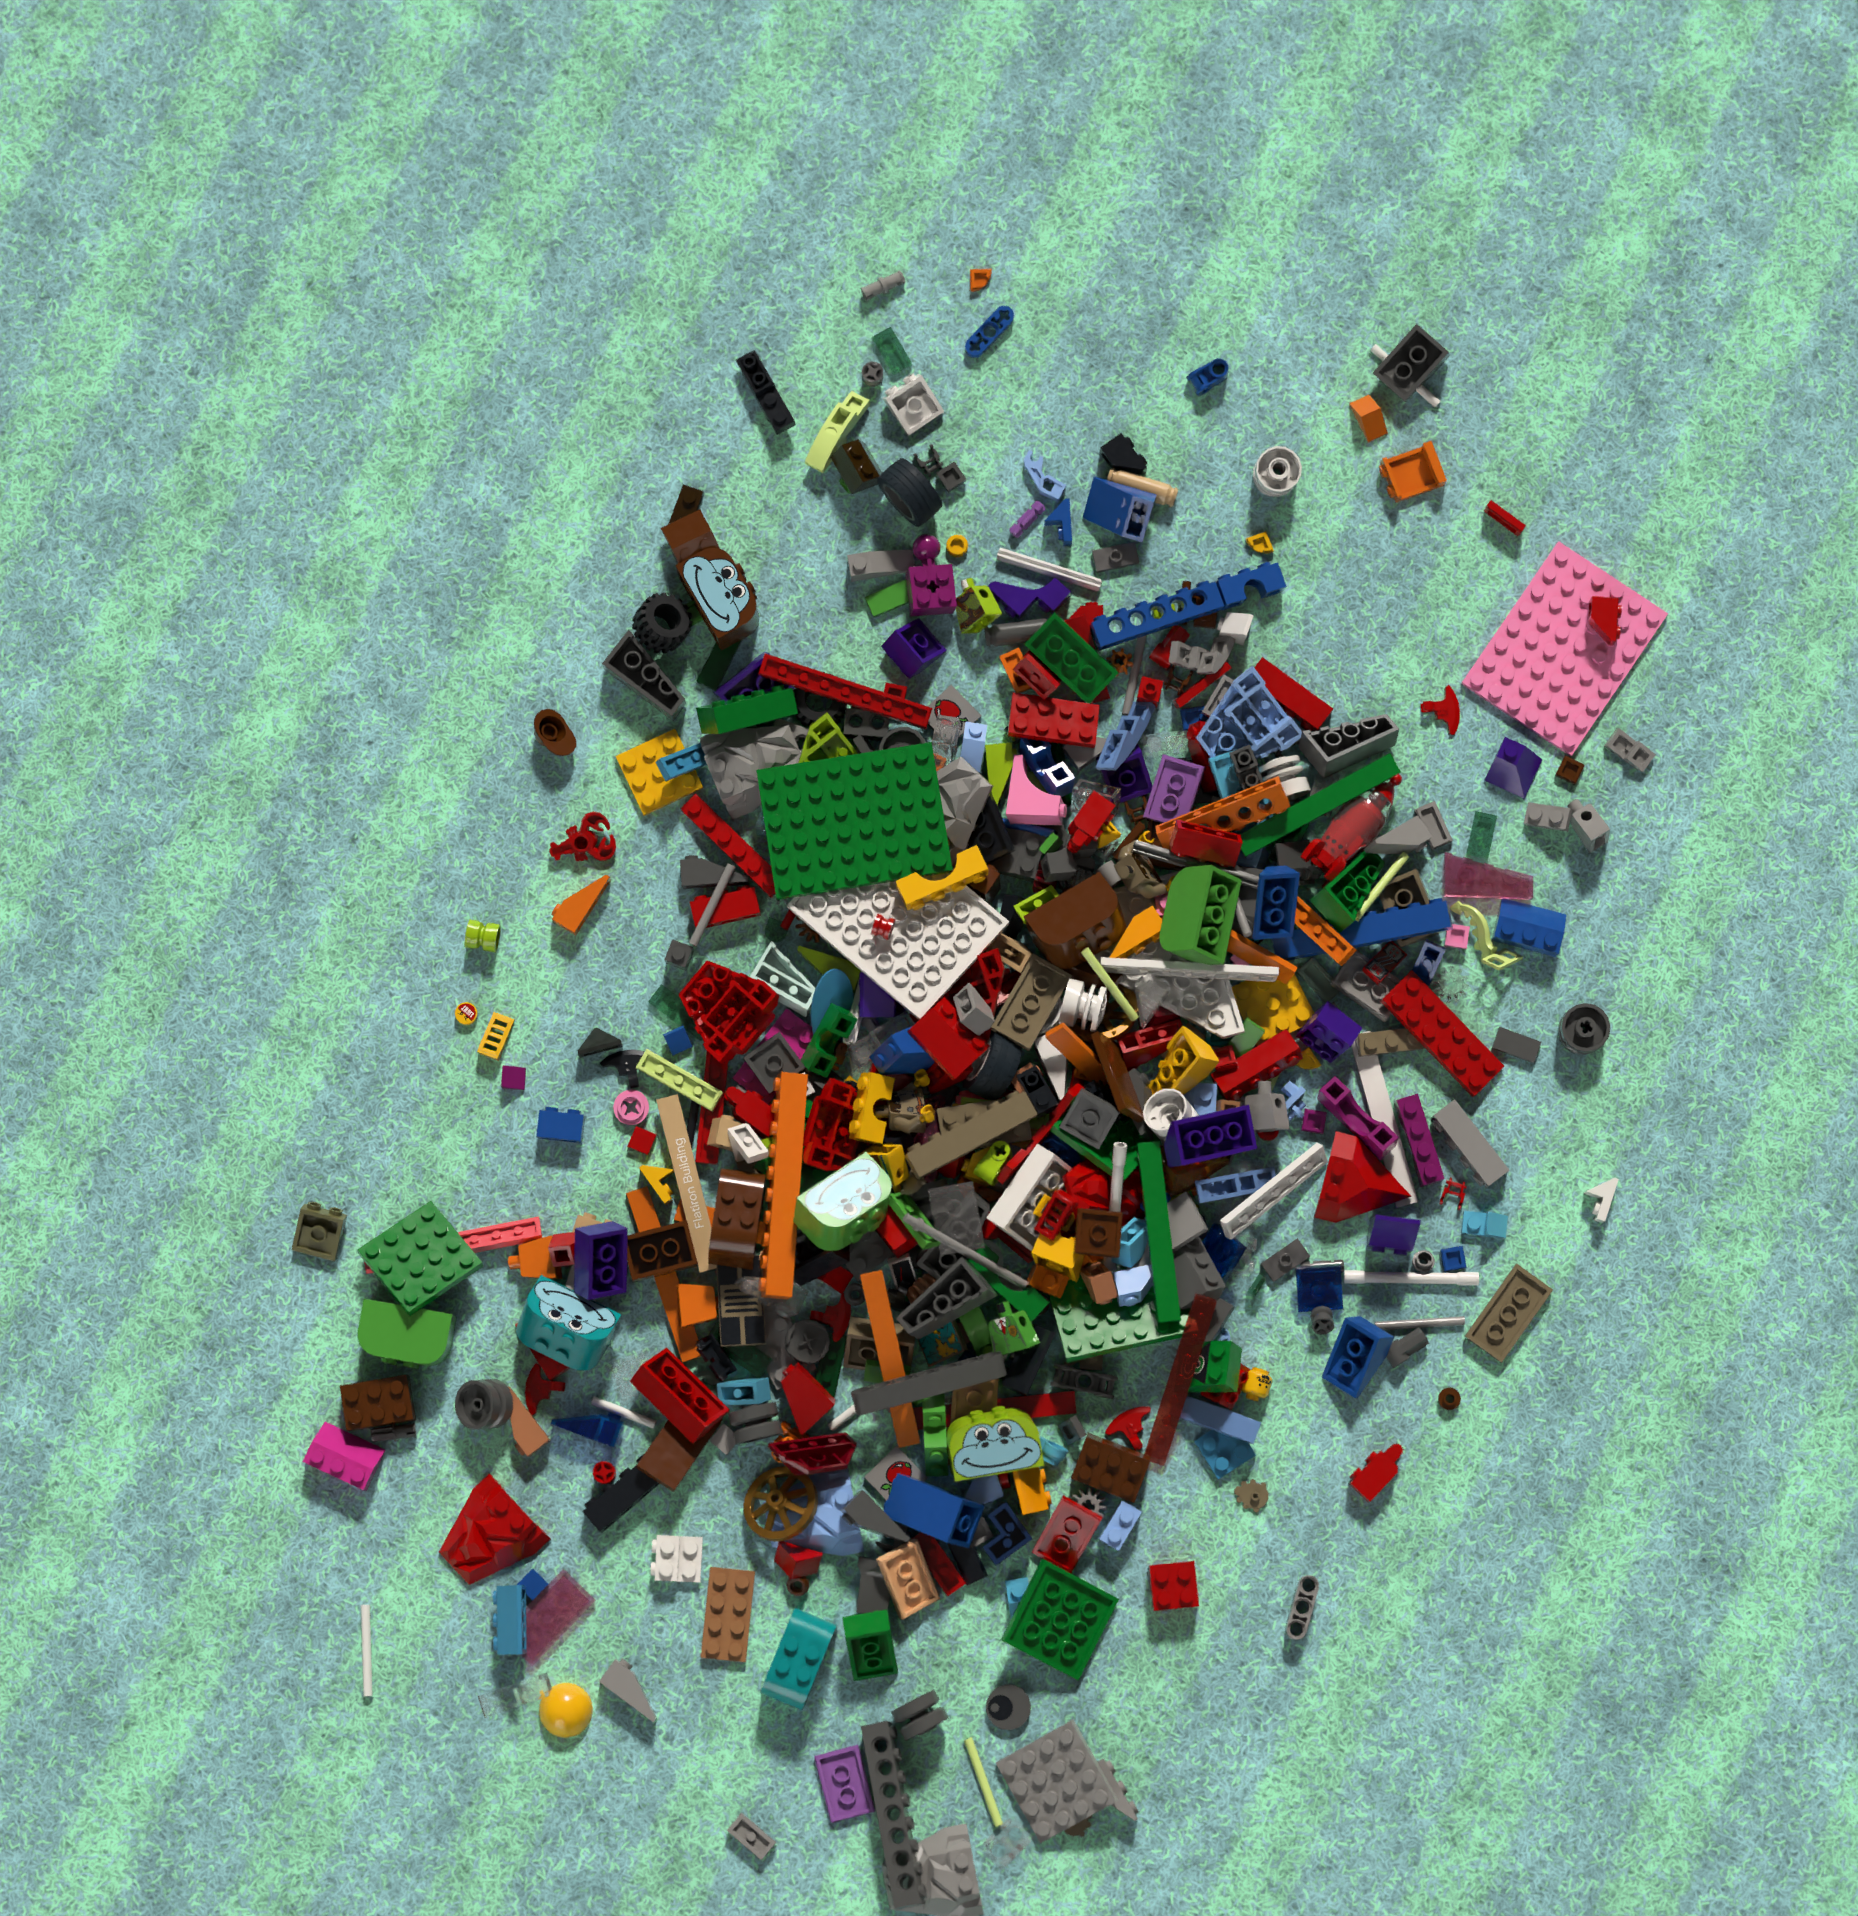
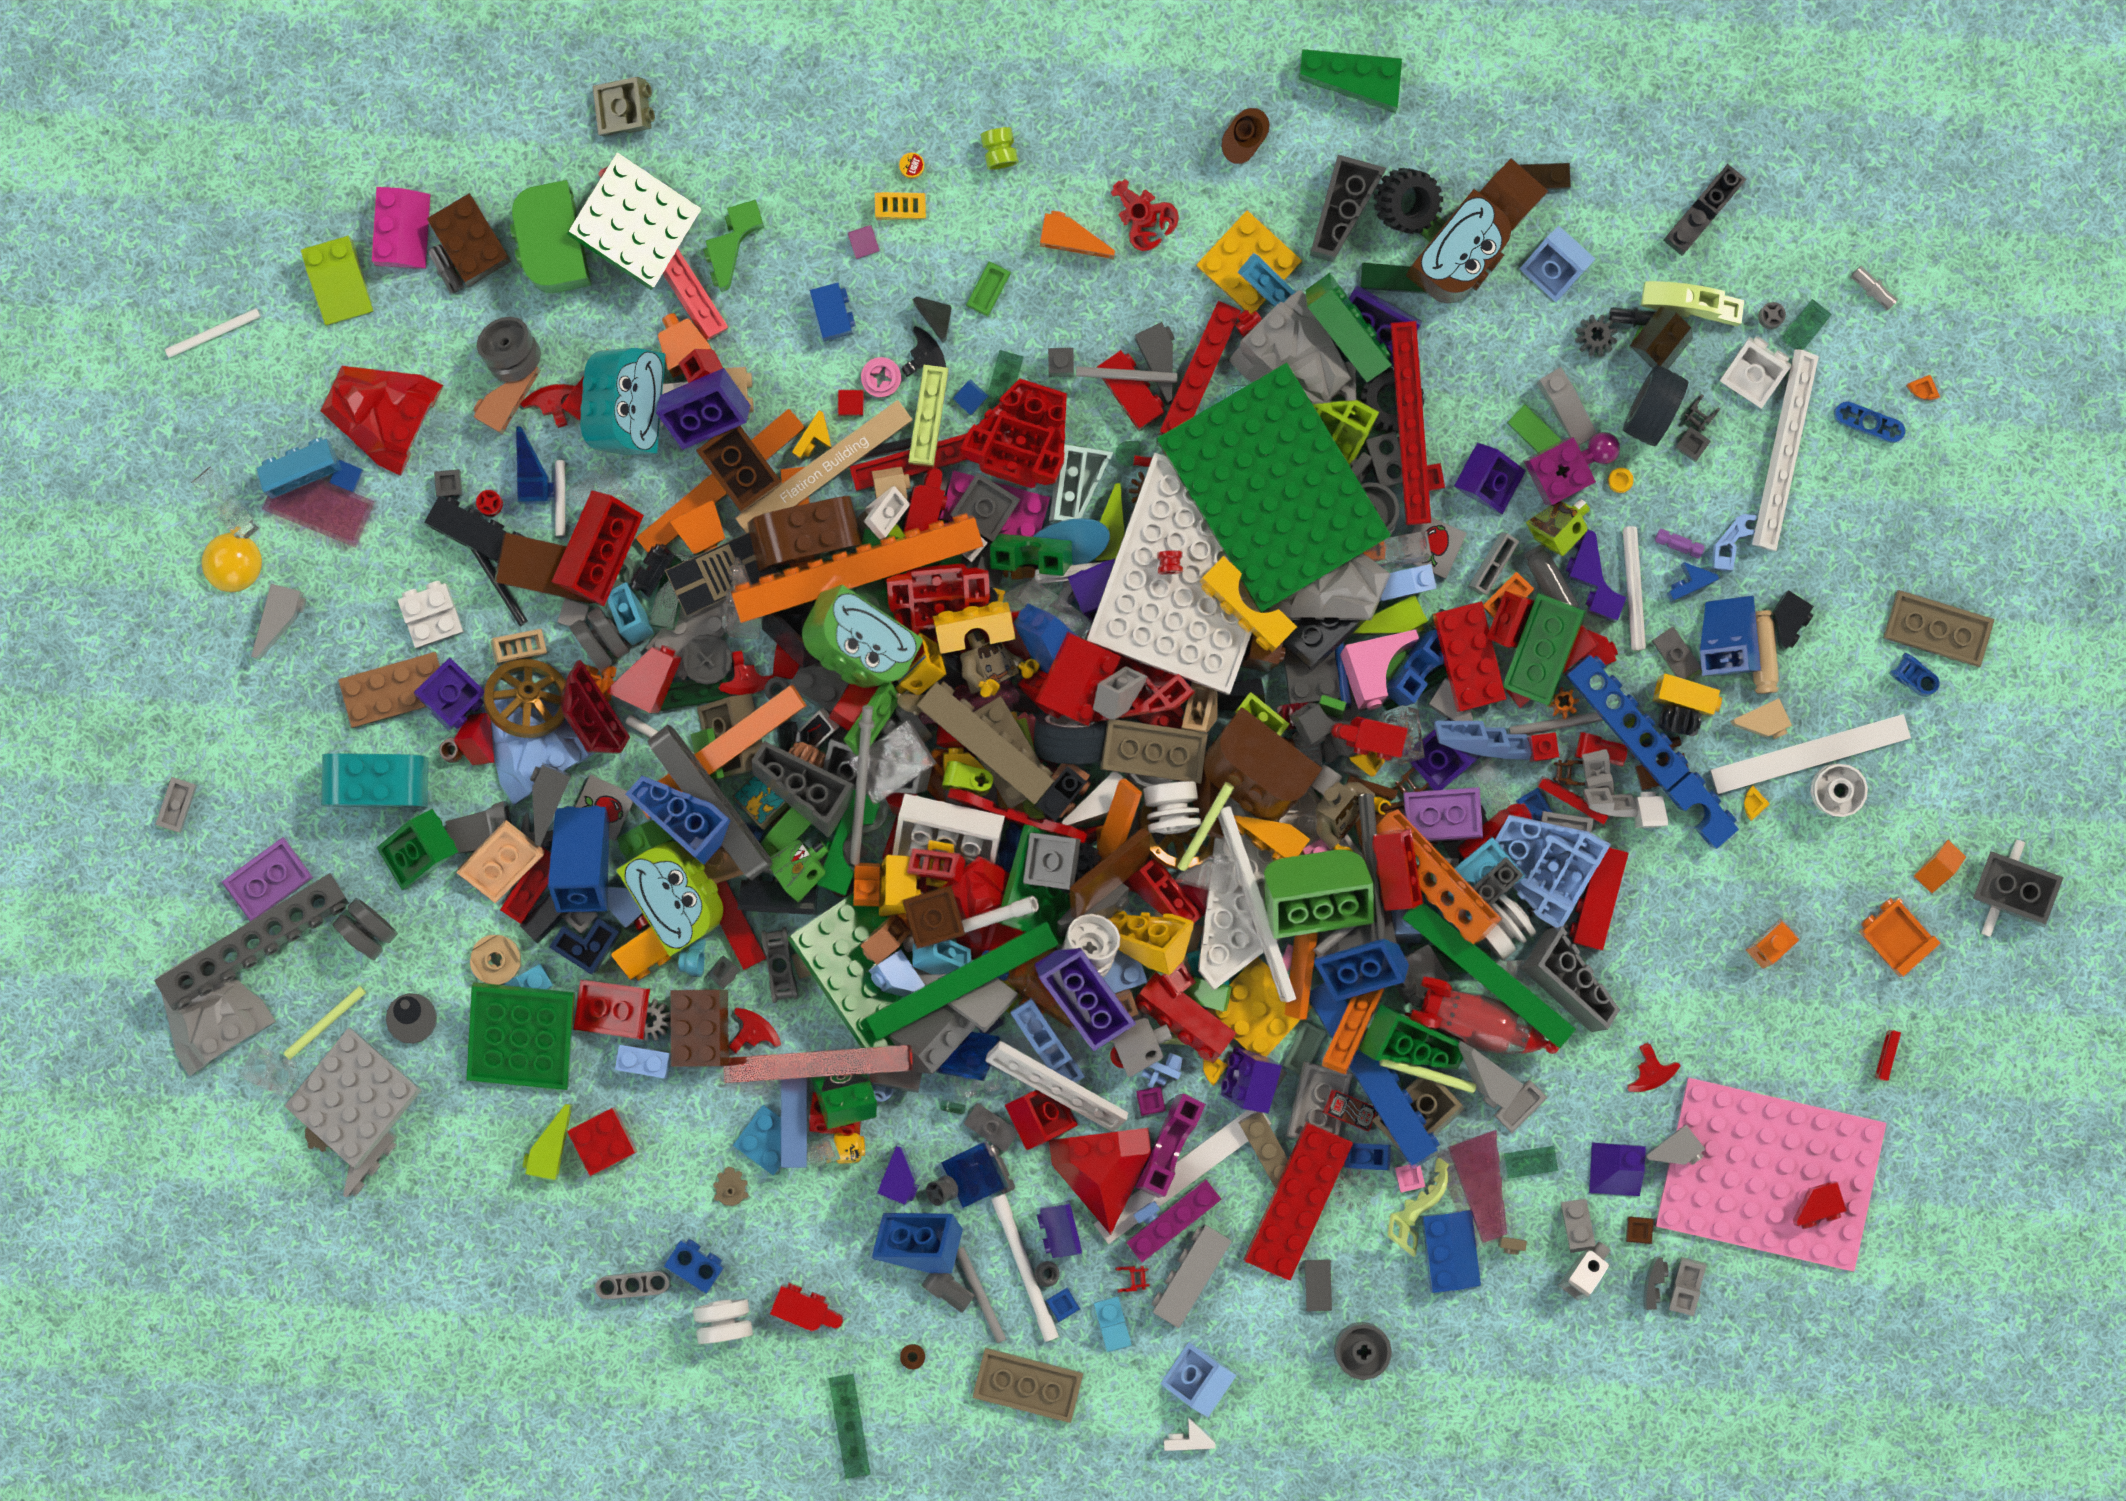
camera: 65 degrees right, 5 degrees up
(366, 1527) = (337, 280): none -> lime slope
(473, 1195) = (724, 249): none -> bright green arch
(545, 621) = (1354, 76): none -> green wedge
(573, 1500) = (448, 483): none -> dark grey plate
(594, 991) = (988, 289): none -> bright green tile
(682, 1490) = (501, 588): none -> black bar
(708, 791) = (1247, 322): none -> red gear
(733, 1515) = (499, 659): none -> tan slope
(752, 1566) = (450, 695): none -> dark purple plate
(761, 526) = (1557, 263): none -> light blue slope
(827, 485) = (1630, 316): none -> black axle
(838, 512) = (1606, 335): none -> dark grey gear
(936, 1406) = (687, 819): none -> blue wedge
(976, 1609) = (482, 955): none -> tan plate
(981, 674) = (1489, 561): none -> light grey piece
(985, 406) = (1785, 450): none -> white plate
(1152, 561) = (1687, 695): none -> yellow slope
(1163, 1634) = (548, 1150): none -> lime slope
(1171, 574) = (1679, 720): none -> black gear
(1177, 343) = (1938, 628): none -> dark tan tile
(1197, 507) = (1765, 720): none -> tan slope
(1238, 484) = (1810, 754): none -> white tile
(1253, 1404) = (822, 1152): none -> clear slope
(1293, 1217) = (1039, 1118): none -> red slope
(1299, 1349) = (899, 1178): none -> dark purple slope
(1309, 1554) = (691, 1271): none -> blue brick
(1365, 1543) = (722, 1319): none -> white wheel
(1379, 572) = (1772, 944): none -> orange torso
(1405, 1158) = (1147, 1213): none -> medium blue plate
(1486, 1473) = (849, 1426): none -> clear green tile
(1516, 711) = (1678, 1148): none -> light grey slope
(1543, 875) = (1512, 1245): none -> dark tan plate
(1556, 1172) = (1198, 1379): none -> light blue slope
(1611, 771) = (1656, 1274): none -> dark grey slope

